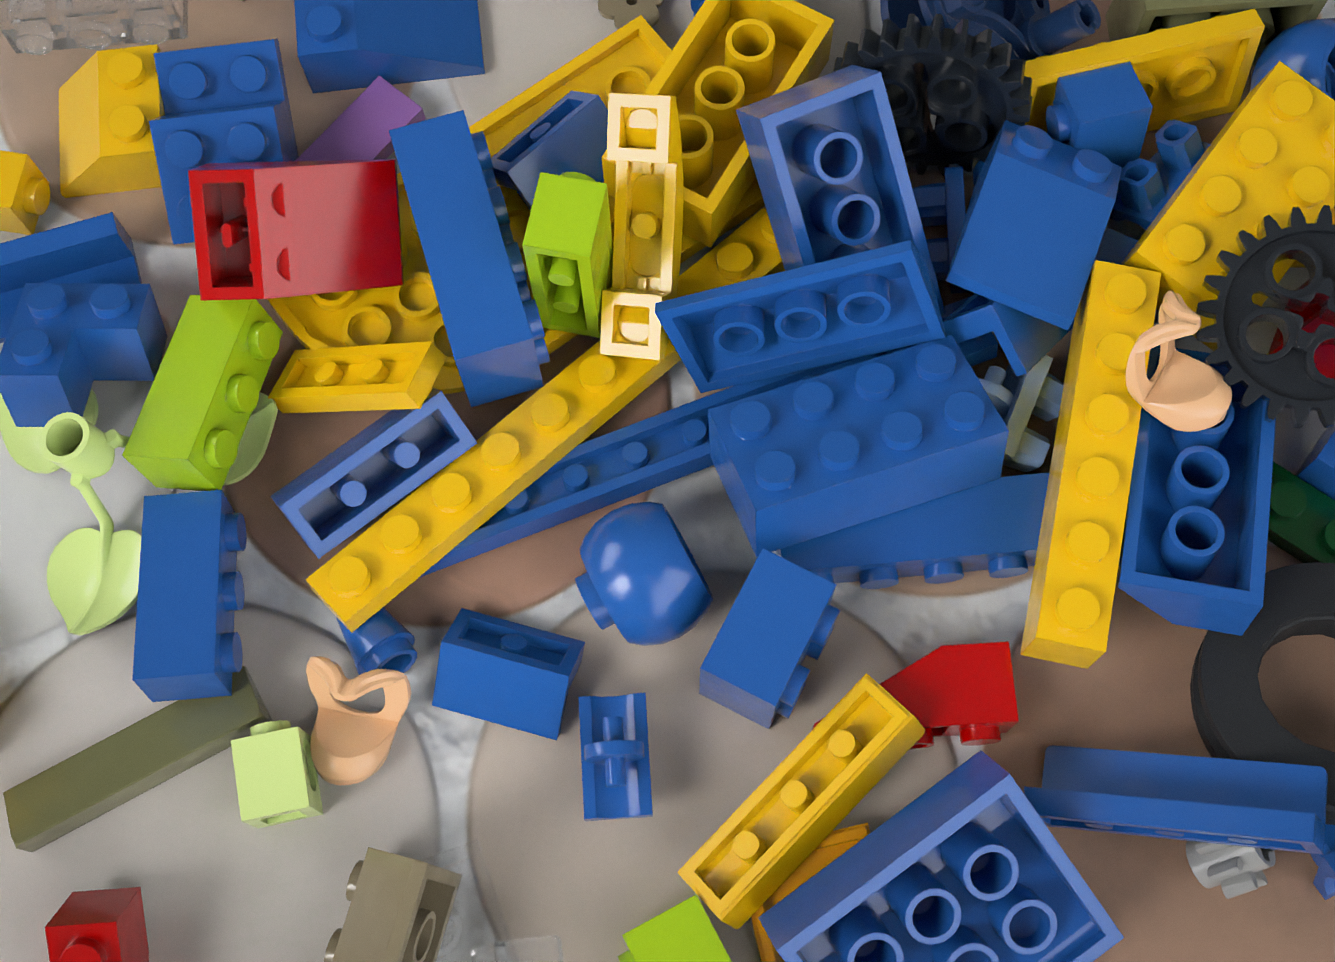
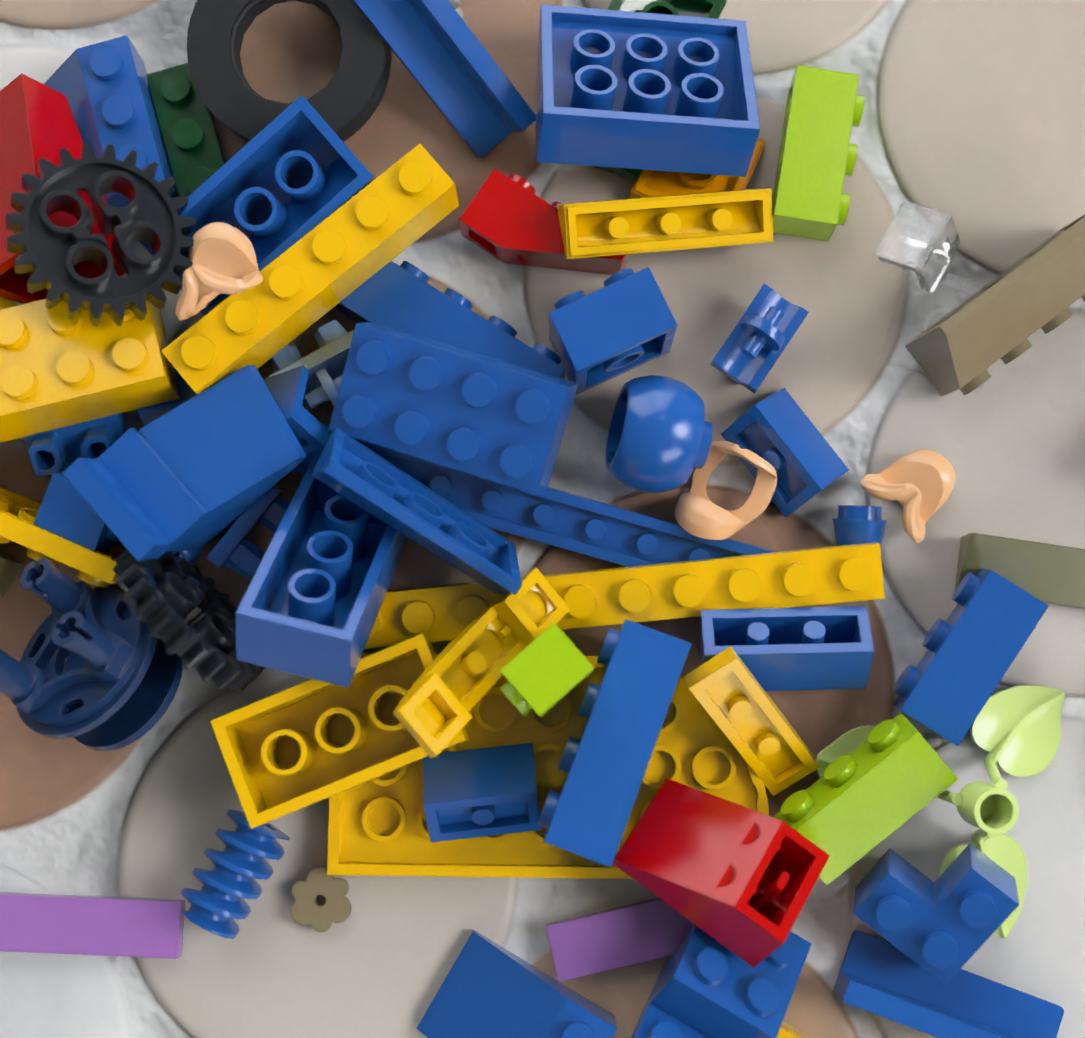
camera: 140 degrees left, 10 degrees up
(275, 775) = (985, 490): yellowish green brick -> none
(544, 541) = (708, 521): none -> light nougat piece
(1062, 124) = (136, 496): none -> blue panel

